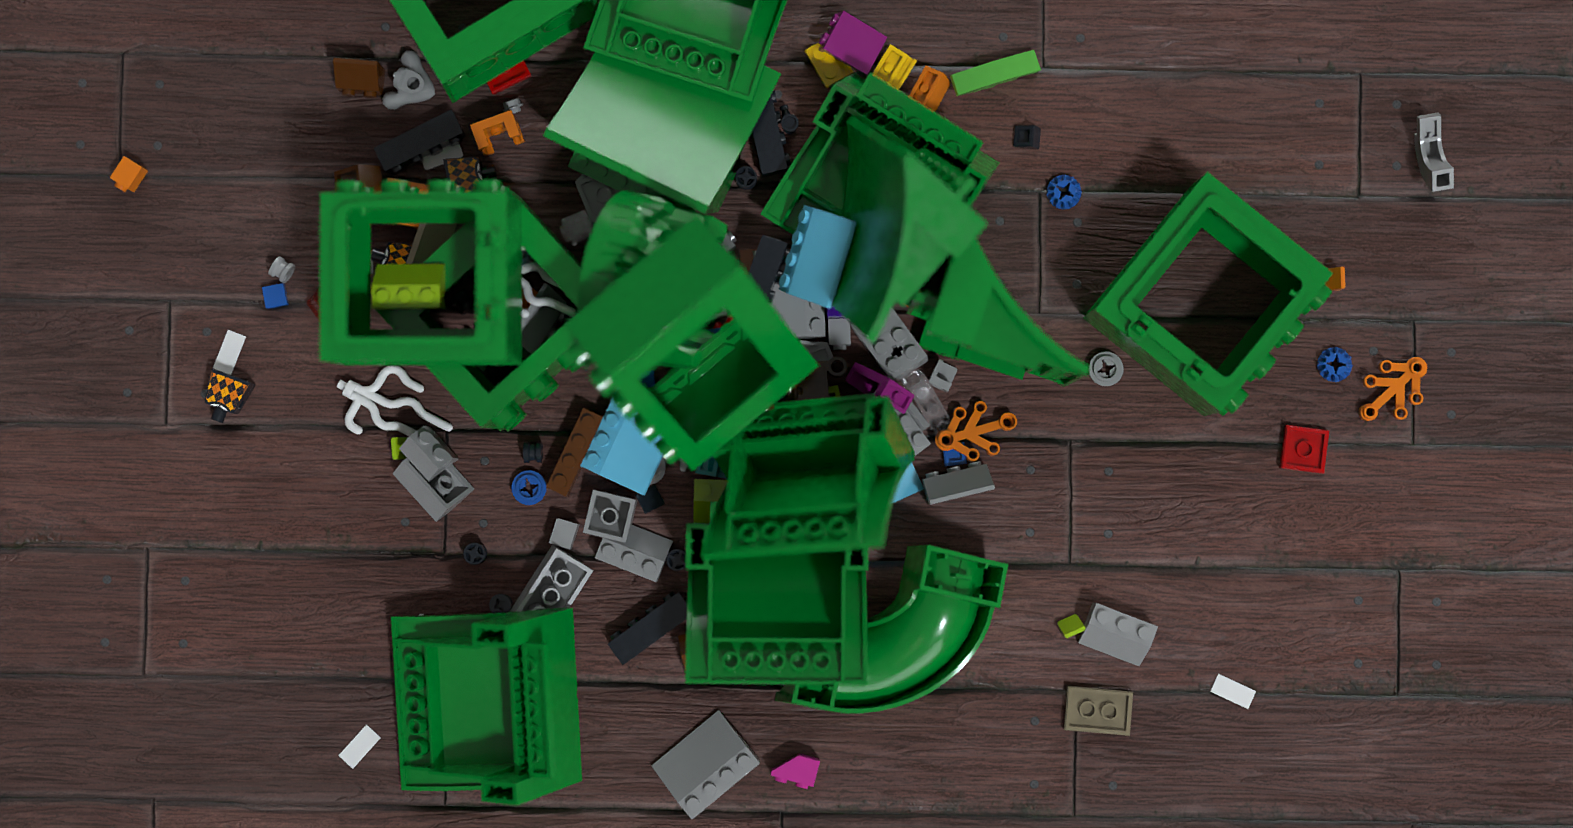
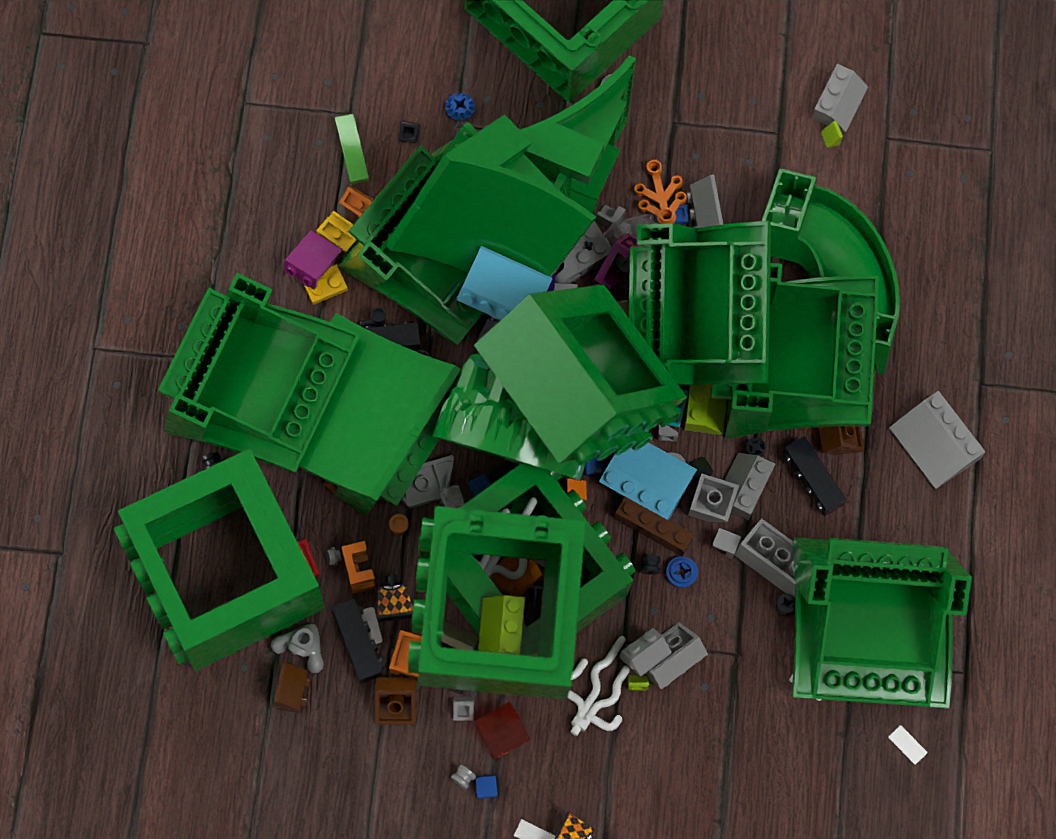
camera: 90 degrees left, 15 degrees down
(472, 552) = (740, 620): black wheel -> none
(557, 173) = (399, 524): none -> orange tile
(798, 769) = (943, 364): dark pink slope -> none
(1098, 710) = (903, 122): dark tan tile -> none
(1233, 691) = (892, 18): white sticker -> none

